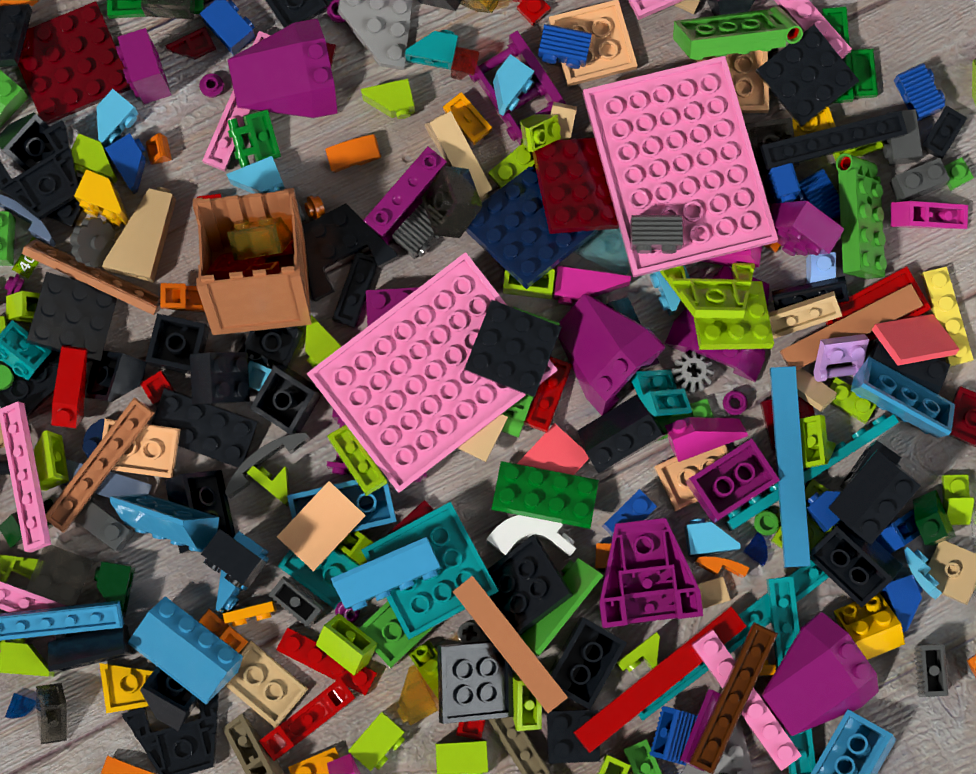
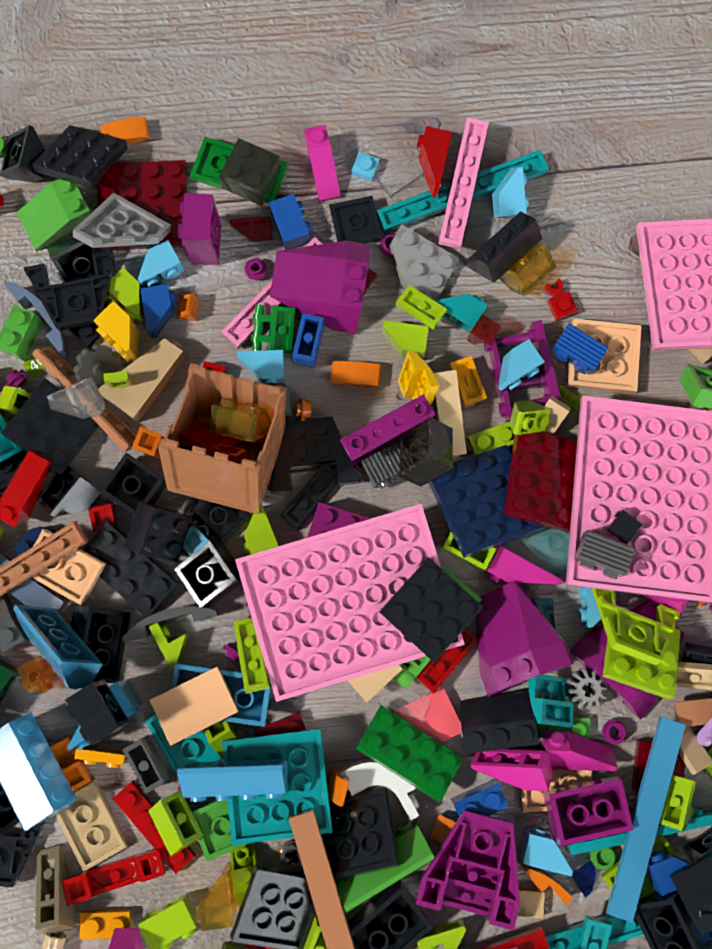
camera: 20 degrees right, 0 degrees up
(61, 90) = (120, 224): none -> light grey plate
(90, 279) = (78, 400): none -> clear slope
(121, 245) = (118, 379): none -> lime tile
(148, 557) = (37, 675): none -> clear orange brick
(293, 137) = (308, 341): none -> blue brick
(393, 62) = (421, 307): none -> lime plate
(416, 134) = (417, 378): none -> yellow slope
(488, 551) = (337, 787): none -> orange slope
(523, 449) = (405, 701): none -> clear tile
(573, 96) = (573, 401): none -> clear neon green bar
(654, 468) = (516, 767): none -> dark pink slope
(667, 200) = (624, 526): none -> black tile

